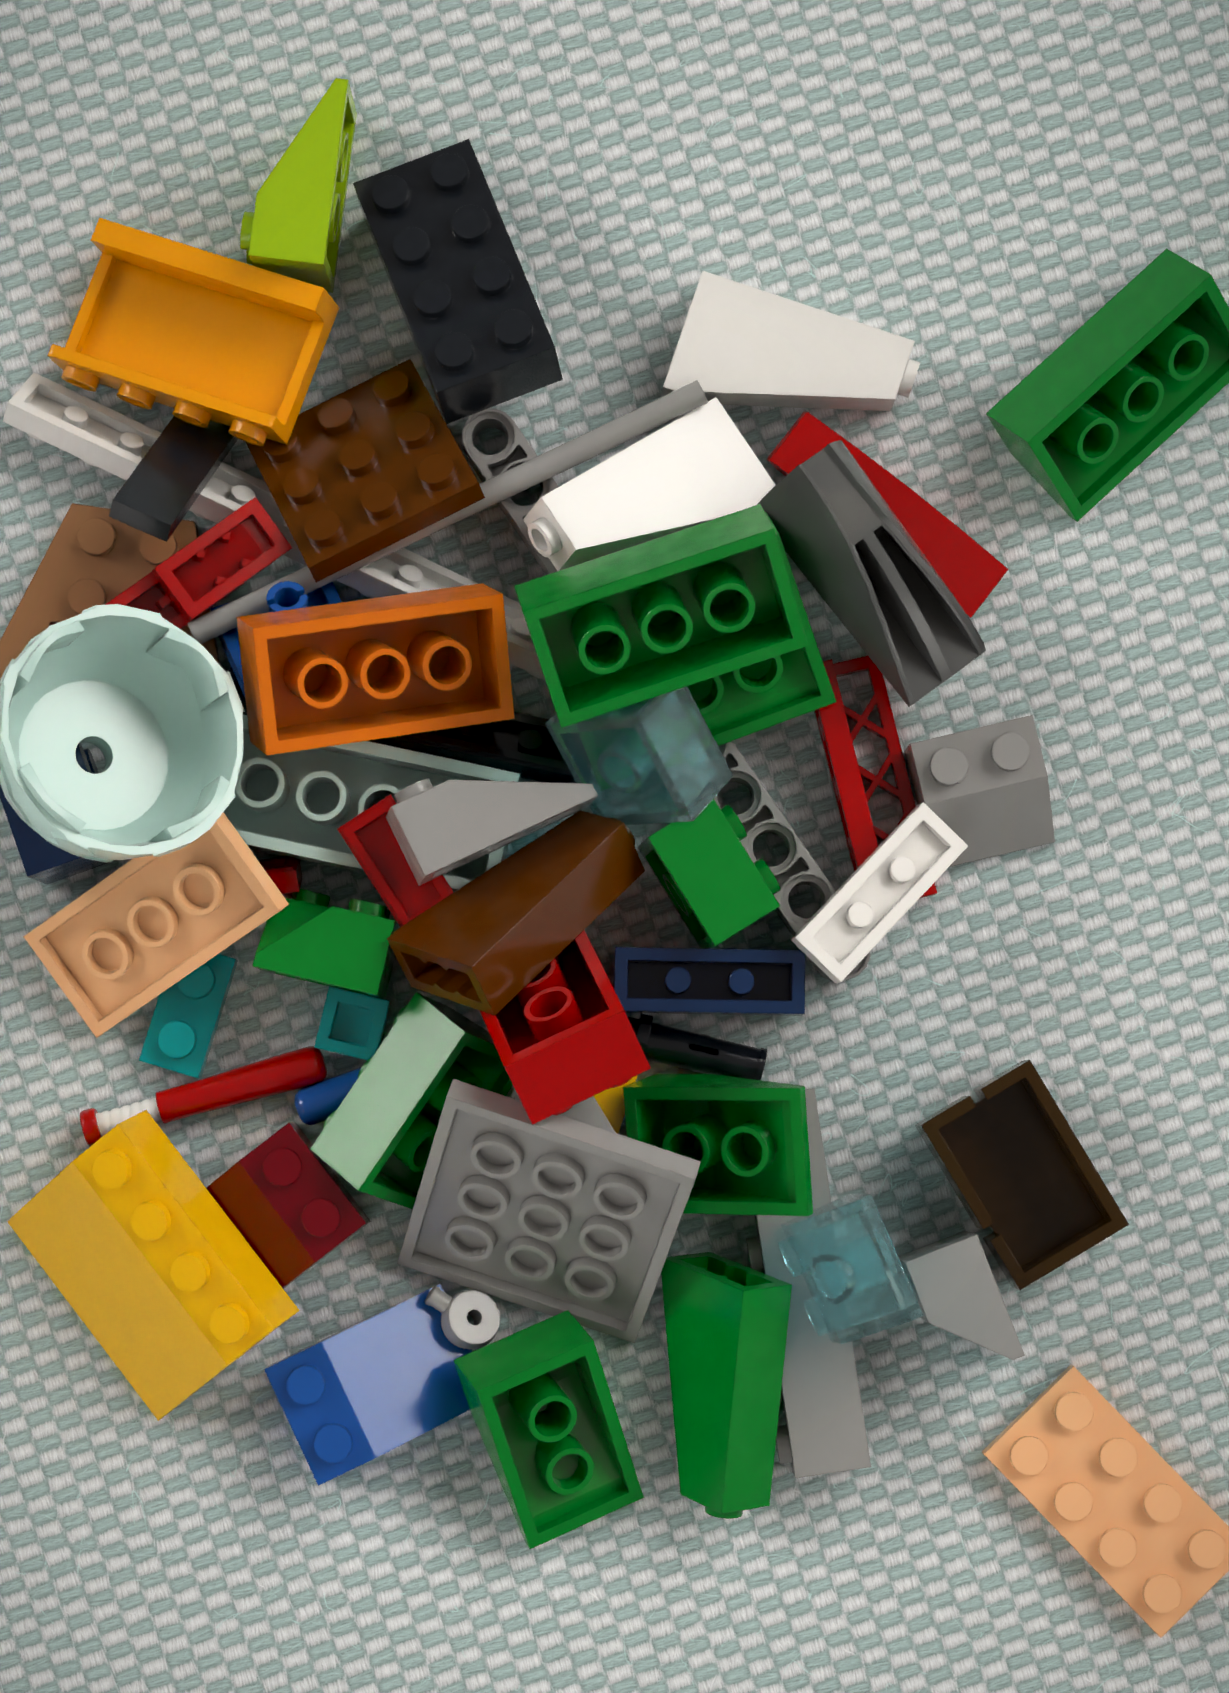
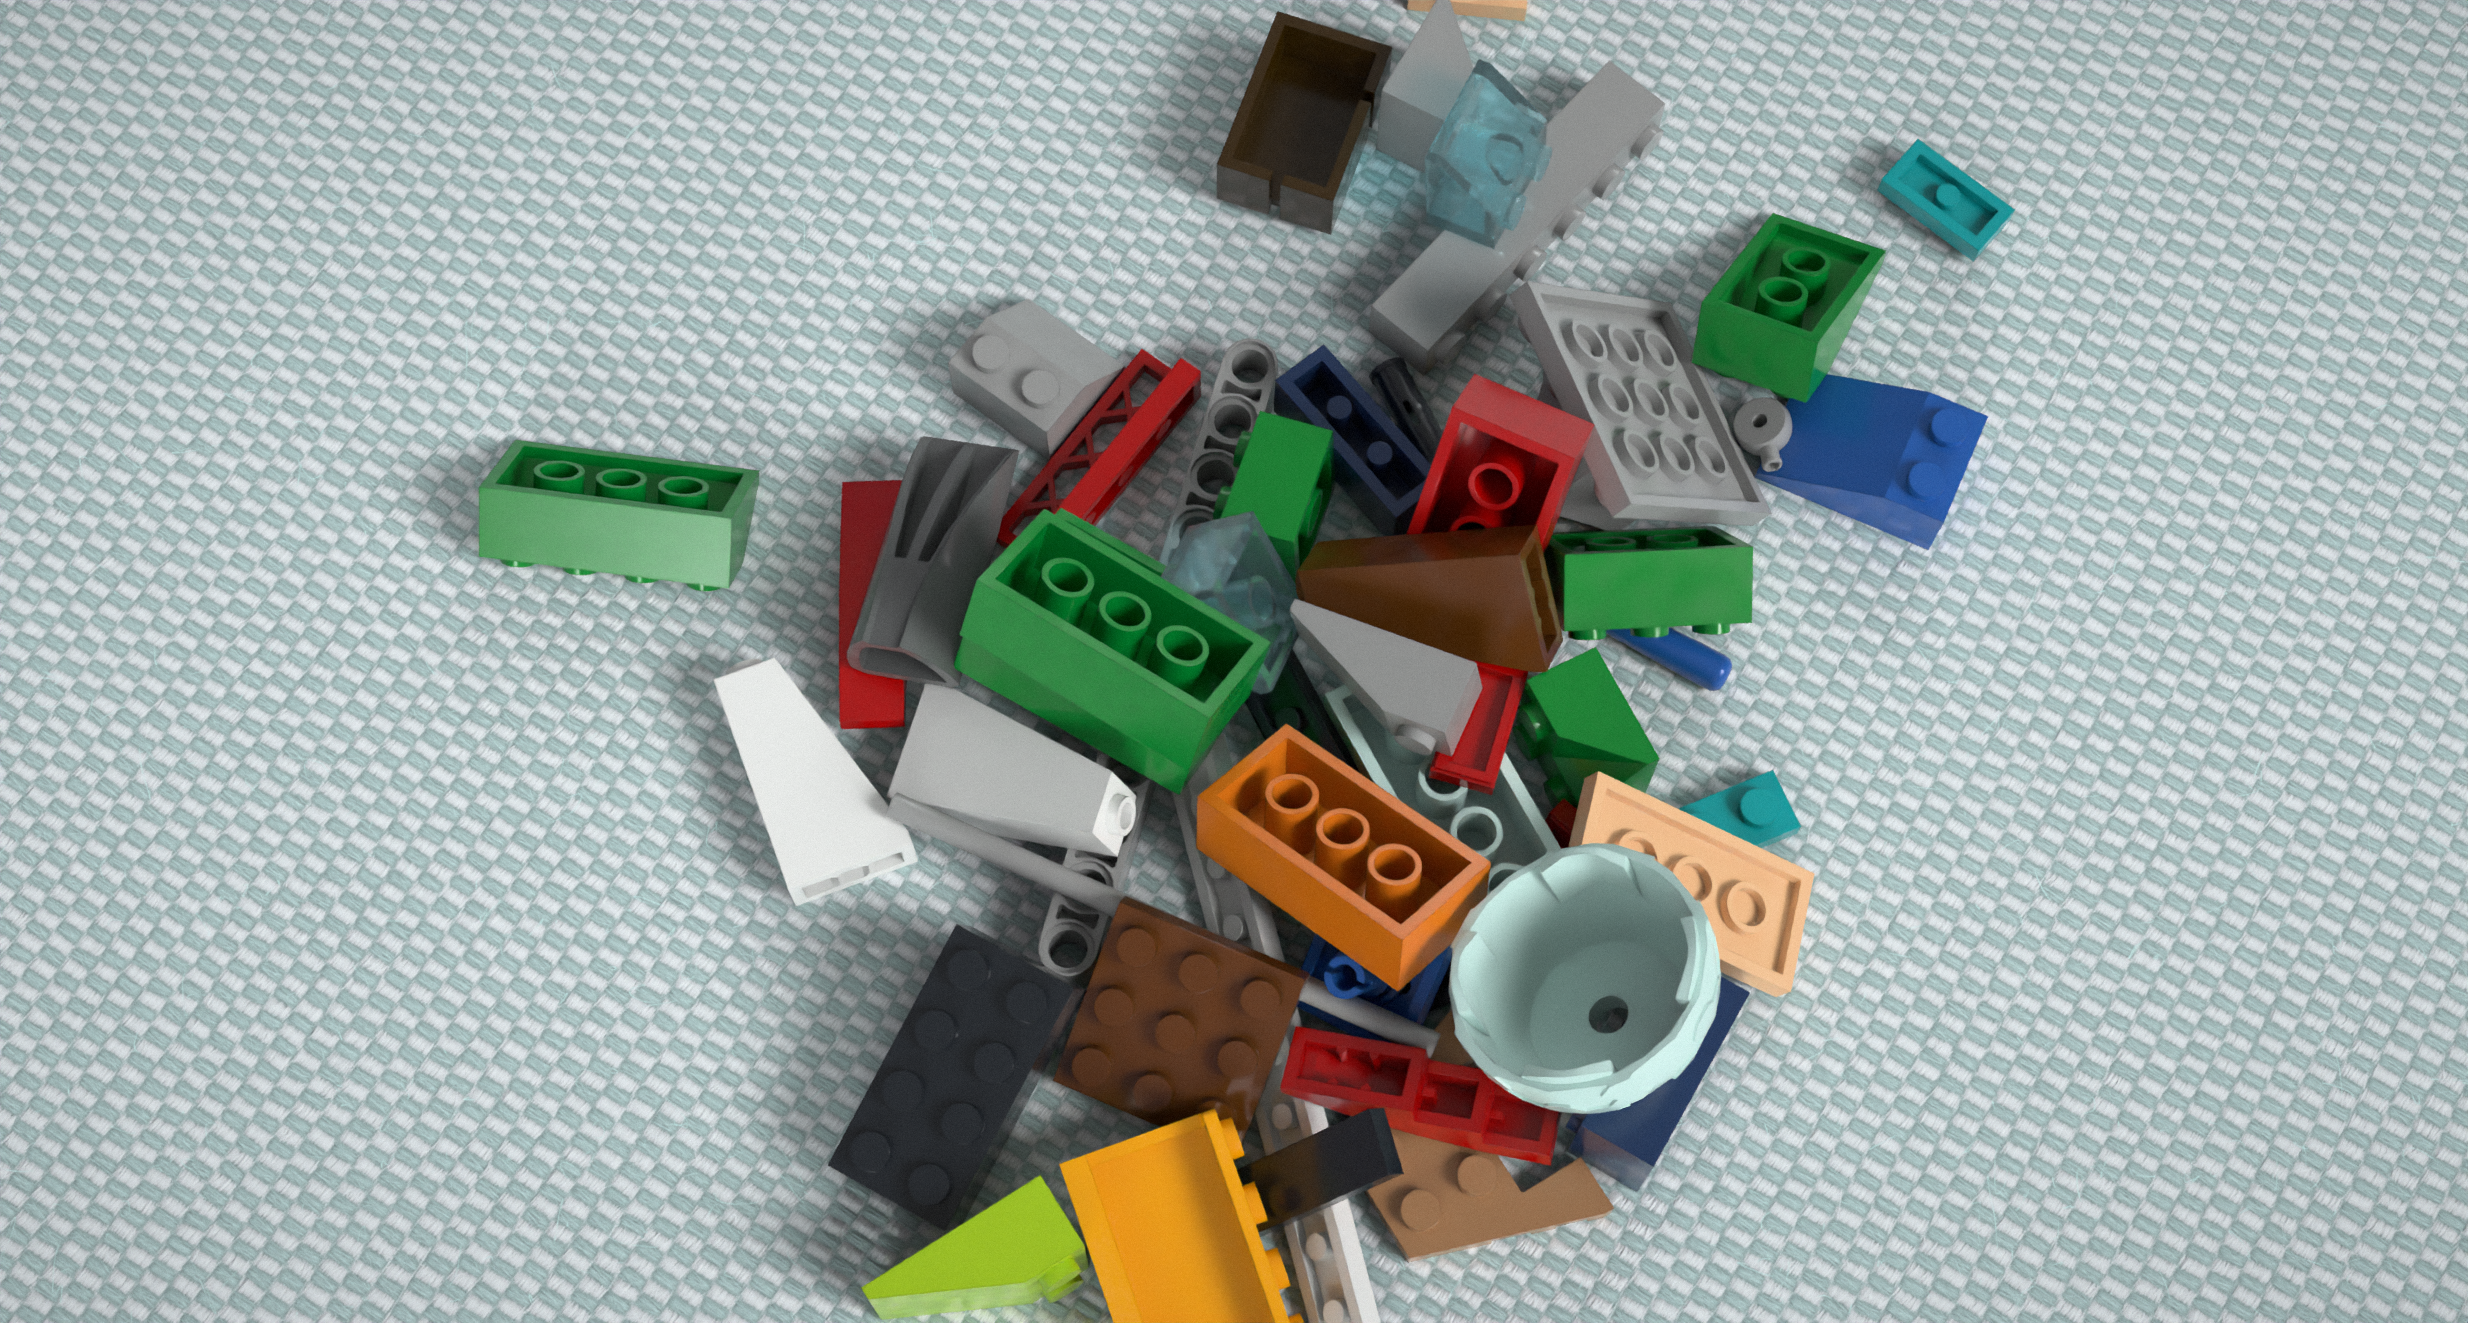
camera: 130 degrees left, 15 degrees down
(151, 1263) = (1943, 675): yellow slope -> none
(222, 1090) = (1754, 740): red piece -> none
(288, 1204) = (1840, 630): dark red slope -> none
(352, 1023) = (1638, 681): teal plate -> none
(535, 1643) = (1945, 200): none -> teal plate
(725, 1377) = (1640, 205): green slope -> none
(741, 1131) = (1461, 313): green slope -> none
(879, 893) = (1184, 360): white plate -> none

